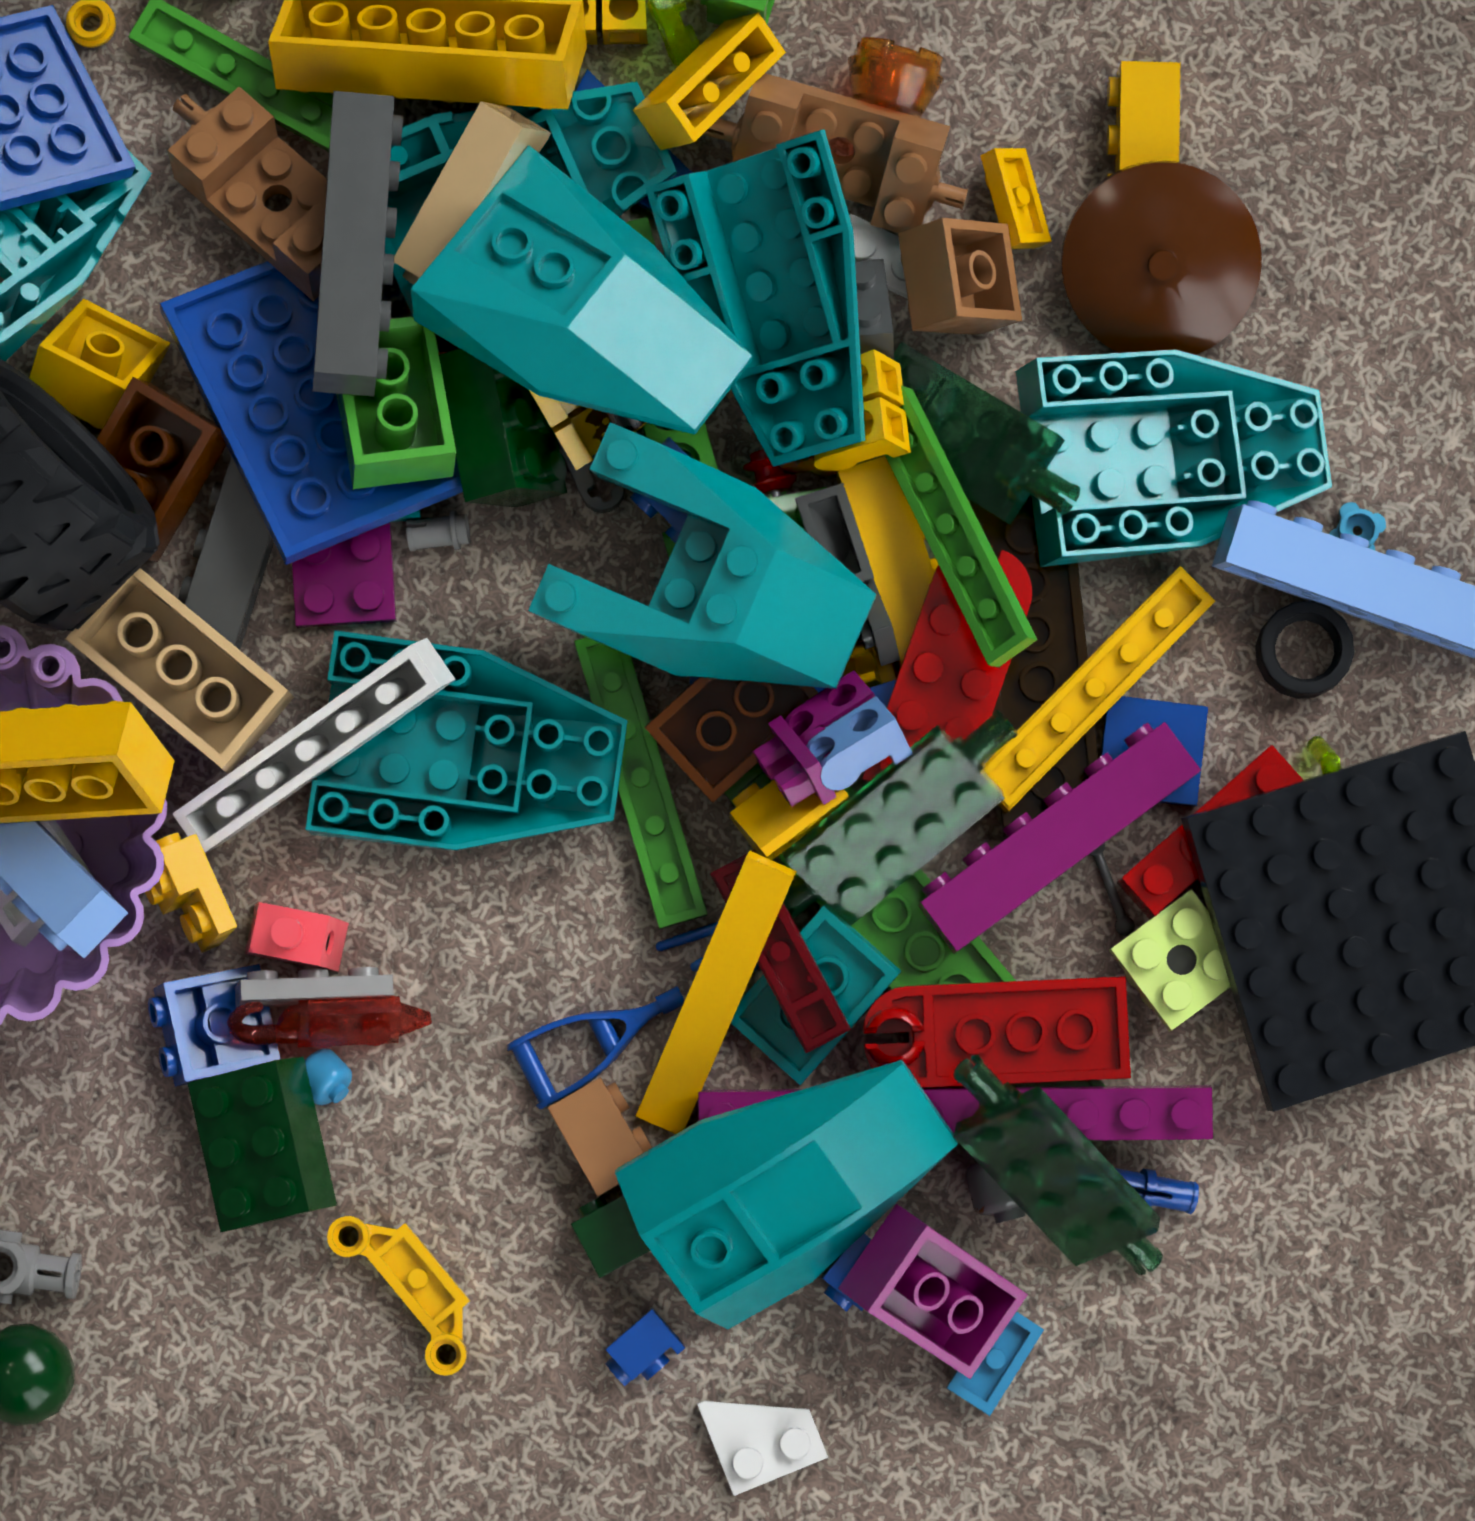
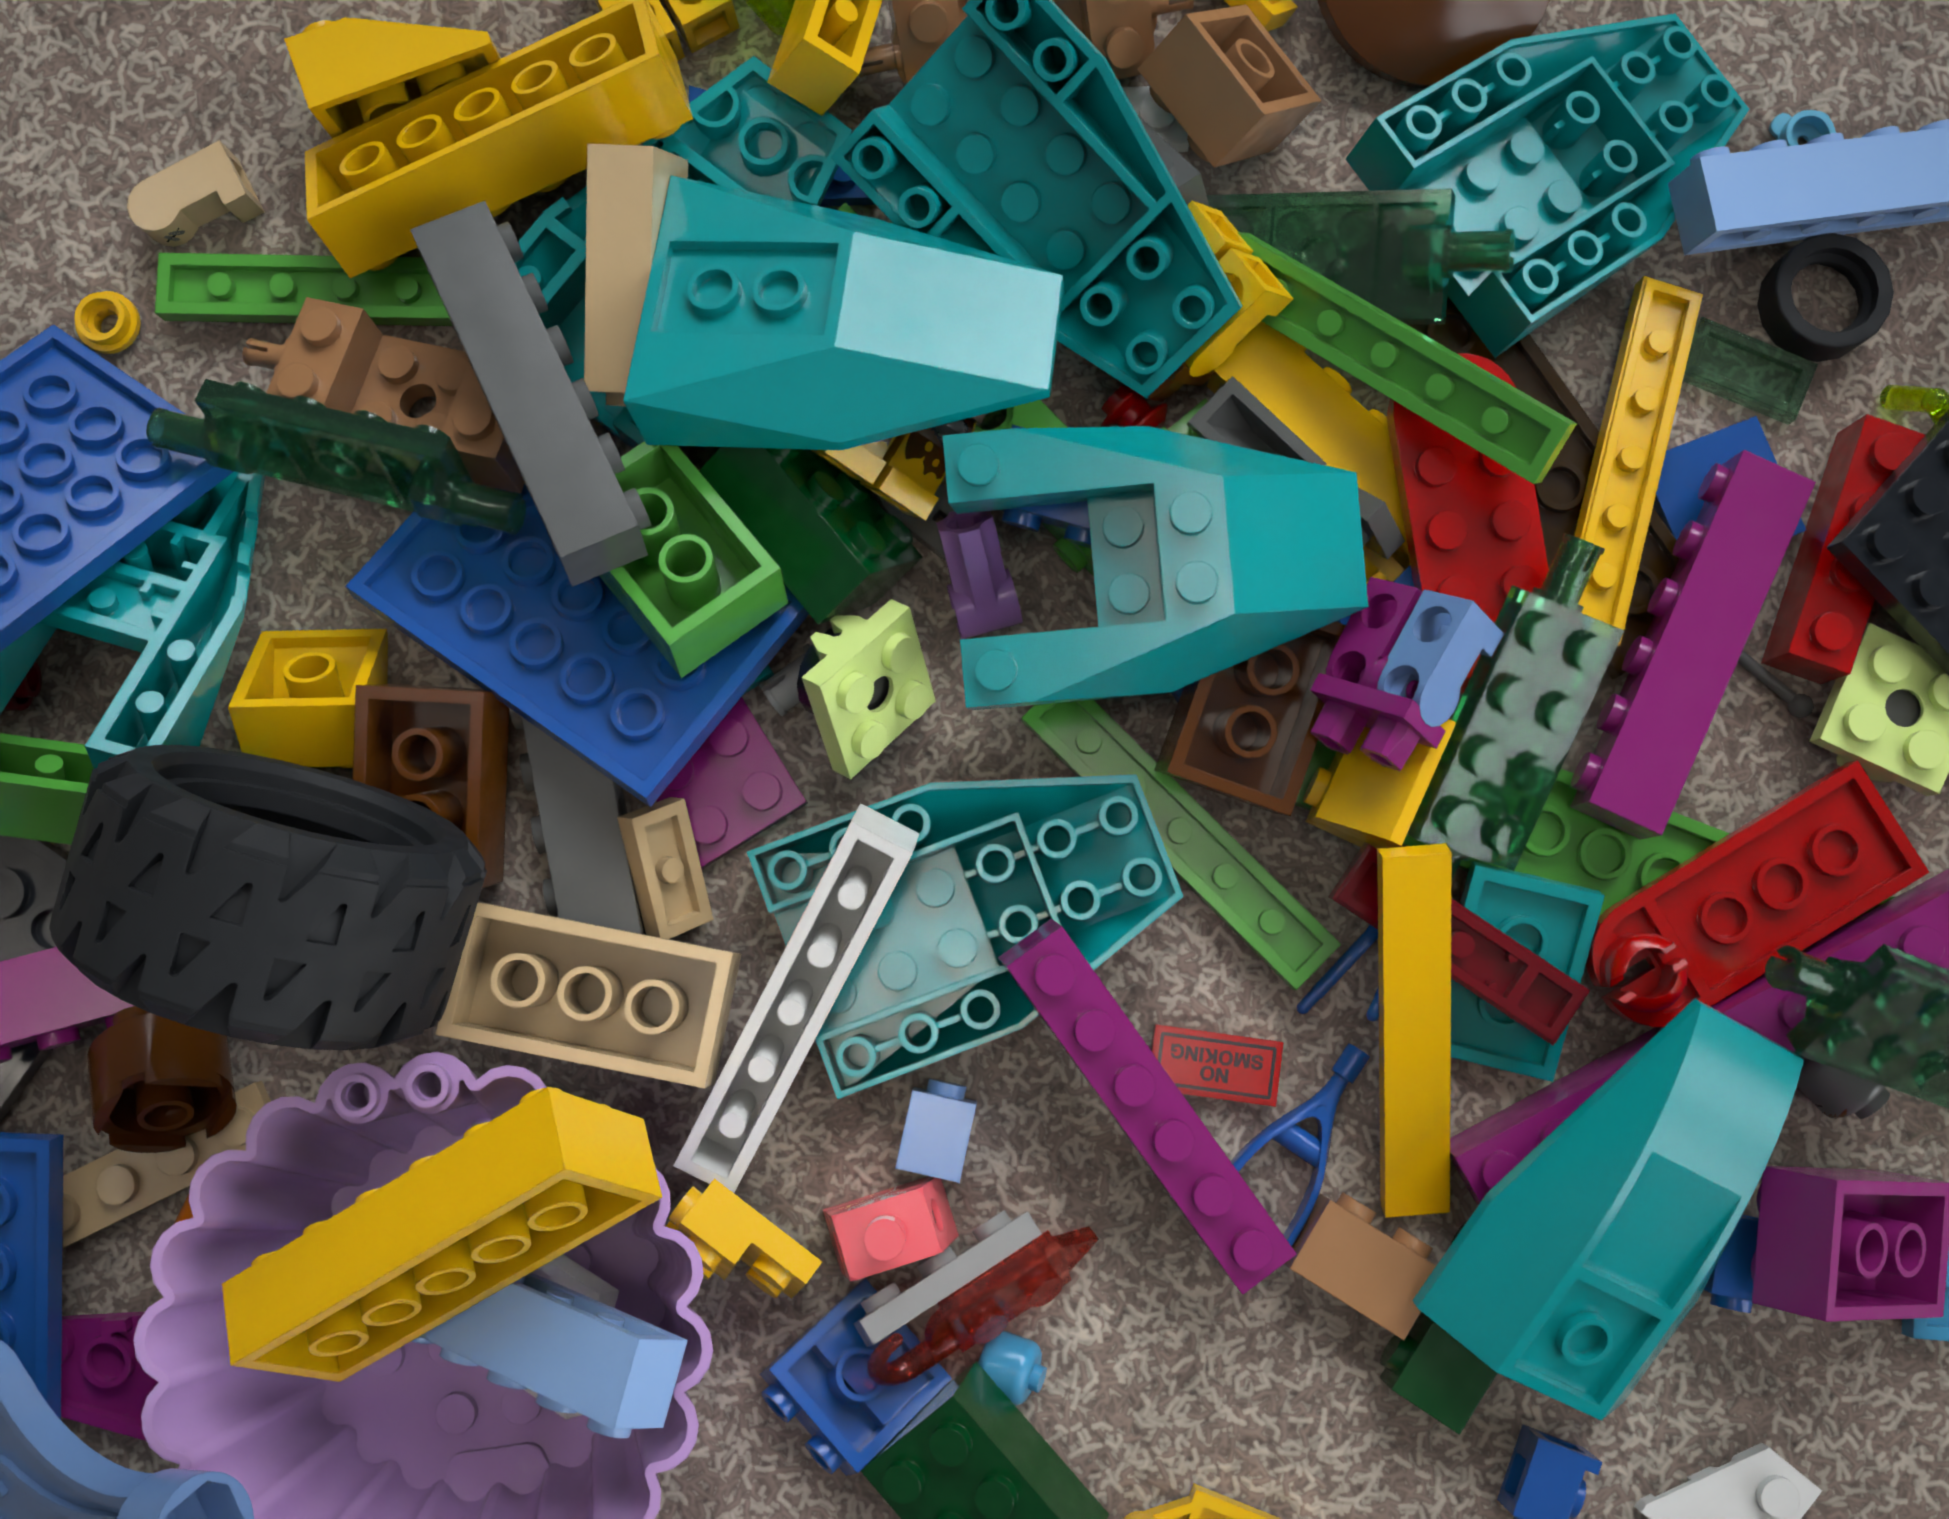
camera: 25 degrees left, 0 degrees up
(214, 219) = (335, 453): none -> clear green plate
(274, 612) = (665, 868): none -> tan plate
(362, 890) = (937, 1131): none -> medium blue brick
(476, 560) = (864, 684): none -> yellowish green piece
(508, 943) = (1147, 1105): none -> magenta brick
(576, 951) = (1219, 1064): none -> red tile
(595, 533) = (980, 584): none -> medium lavender piece
(1222, 671) = (1748, 371): none -> clear green tile

